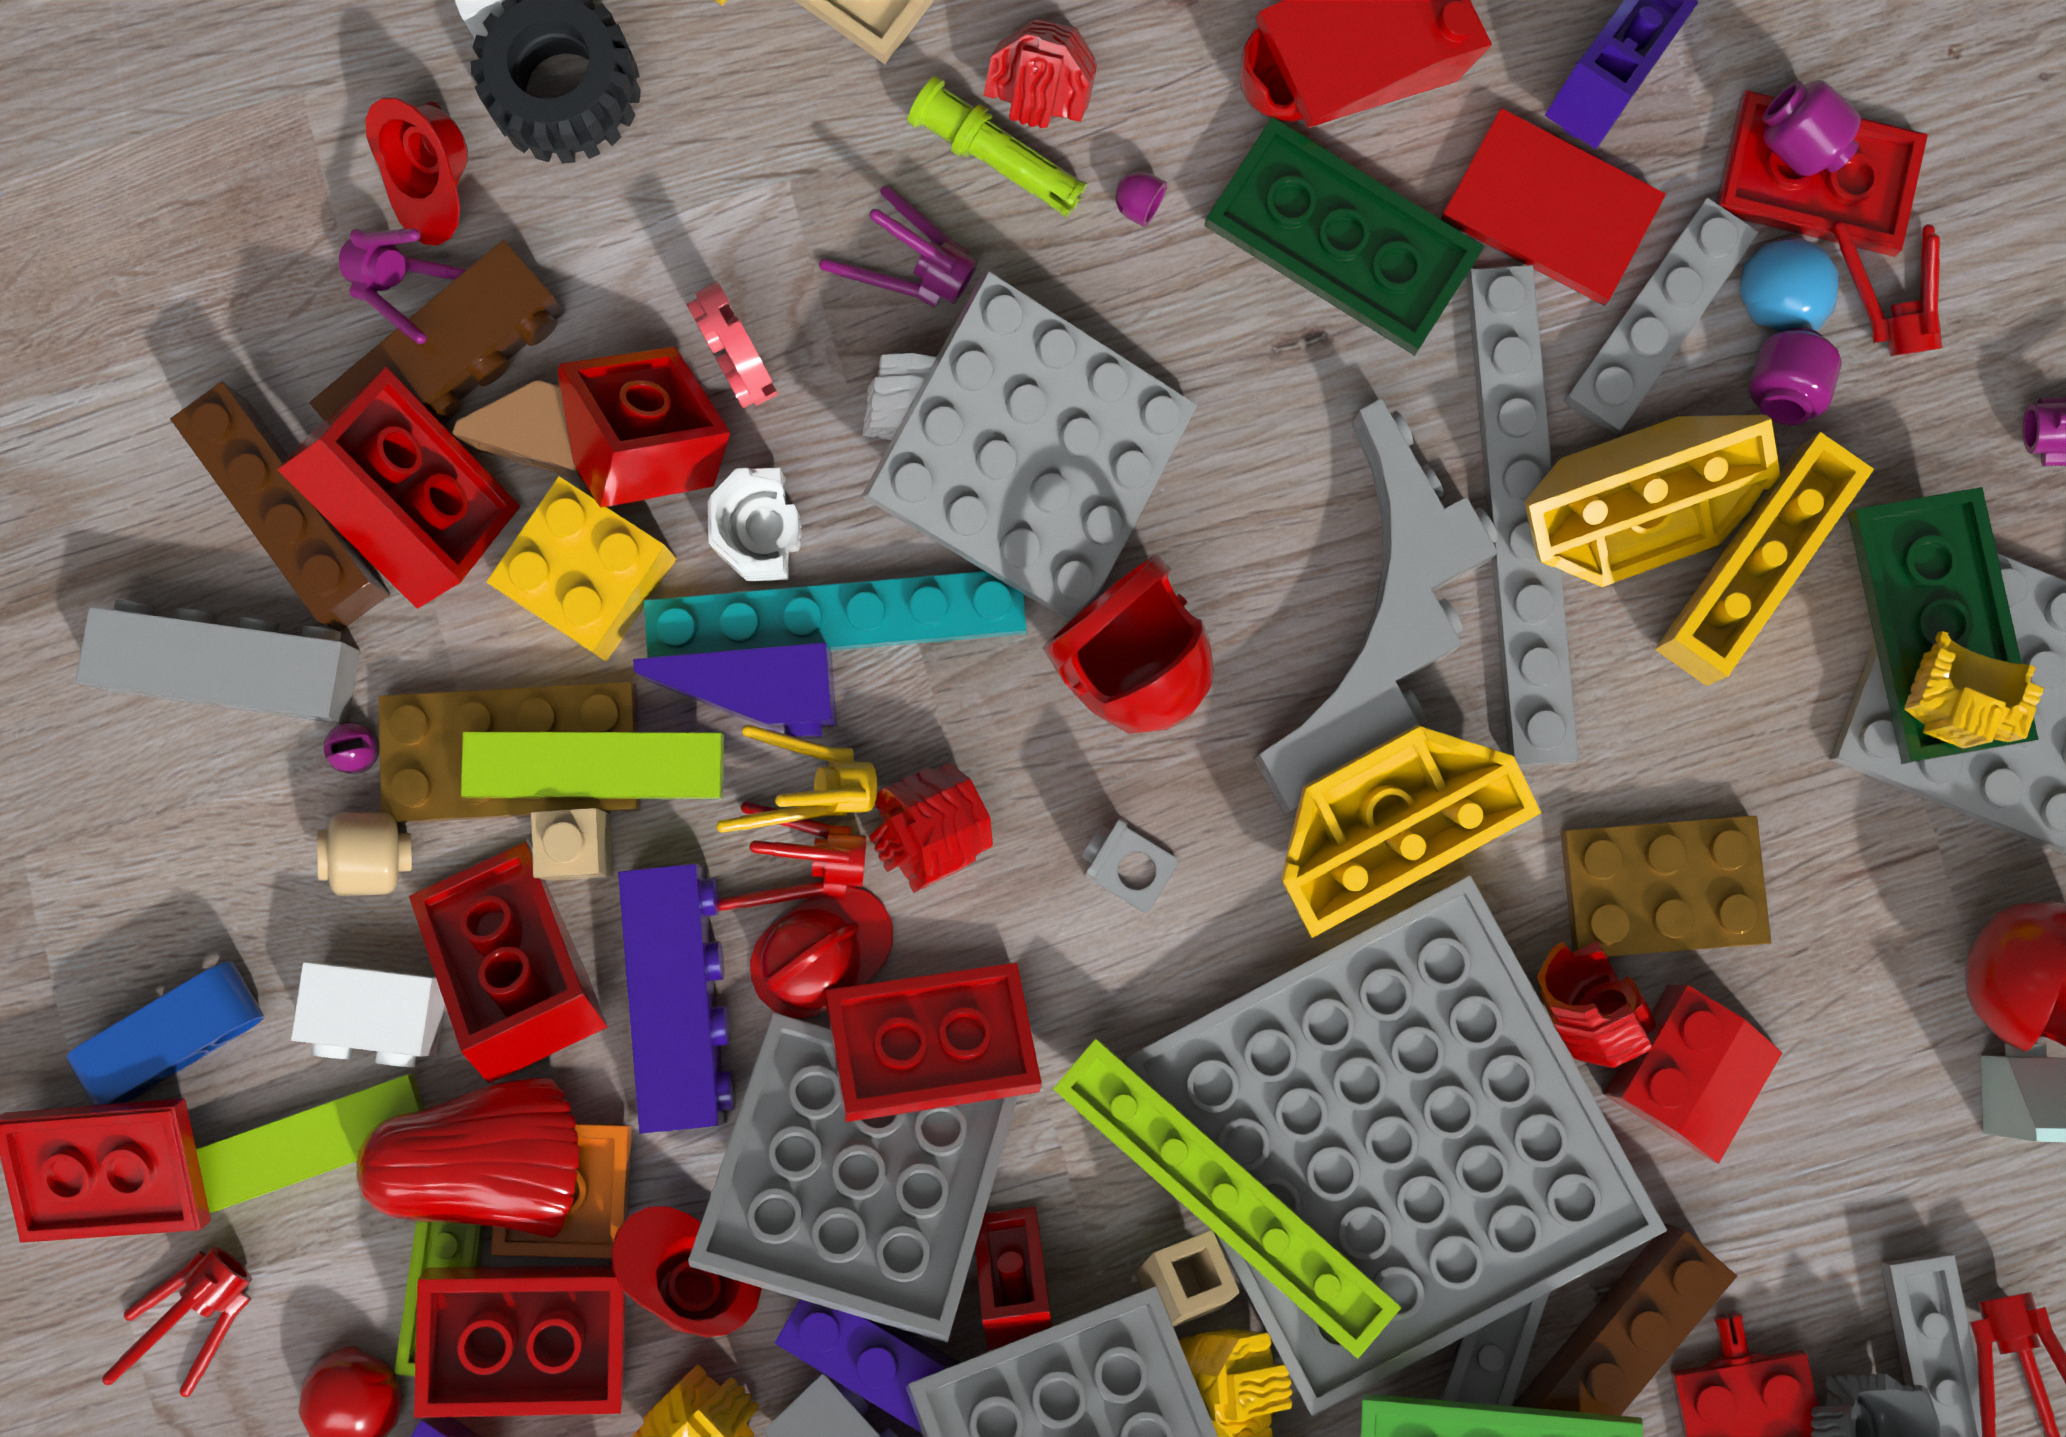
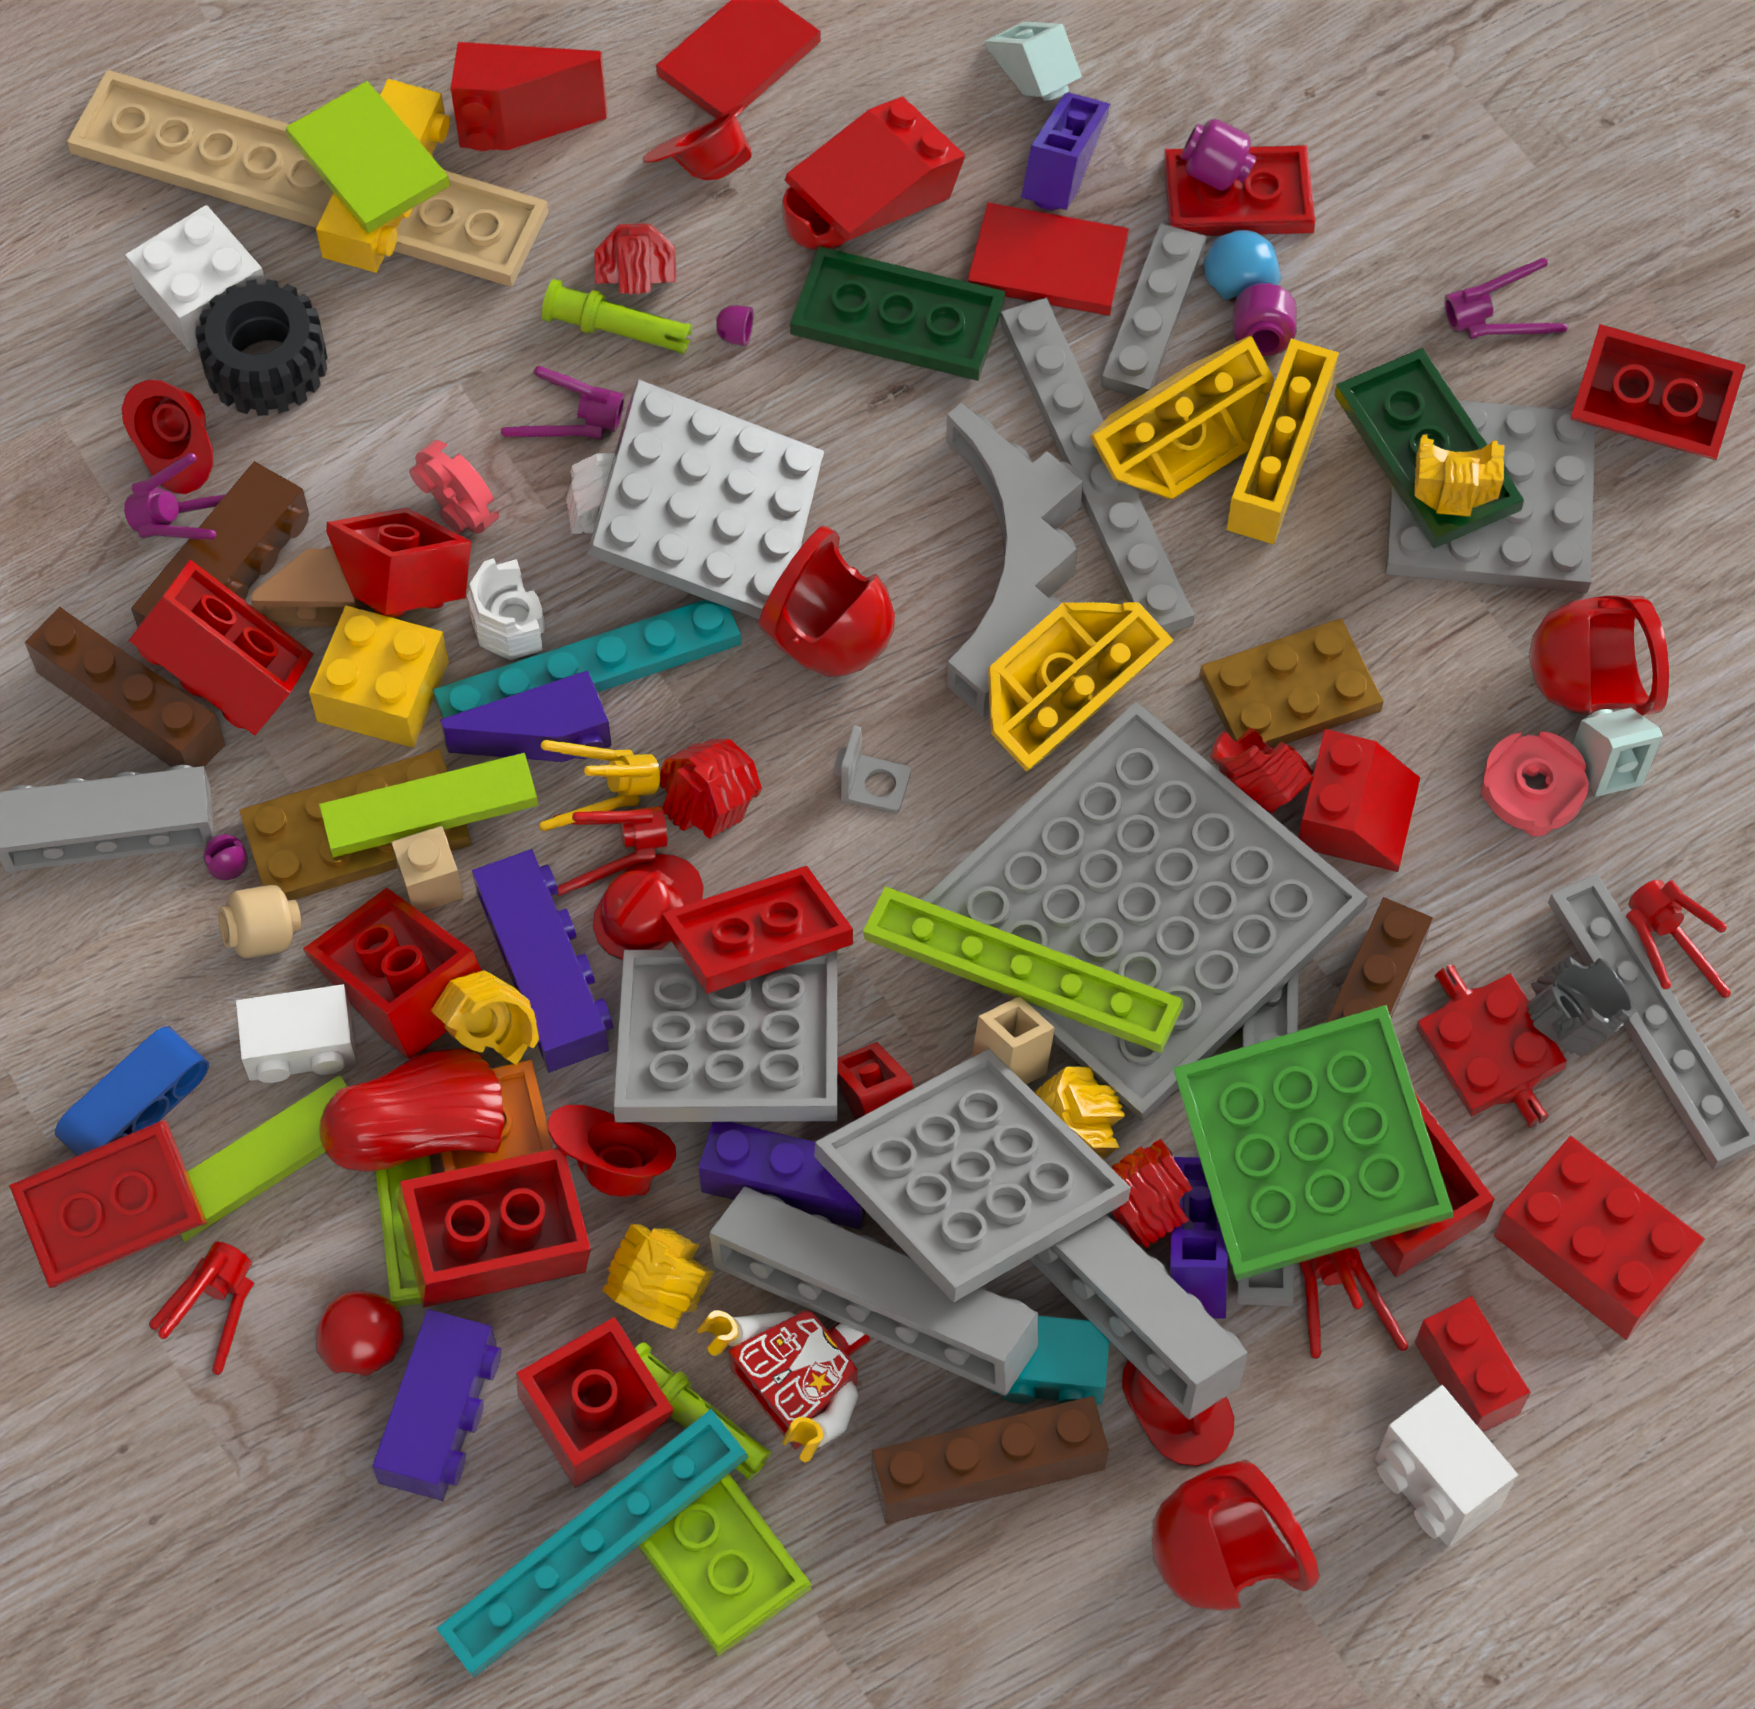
camera: 20 degrees left, 20 degrees down
(586, 1060) = (488, 1012): none -> yellow hair
(1913, 323) = (1339, 265): red plant -> none
(1957, 1111) = (1525, 807): none -> coral plate

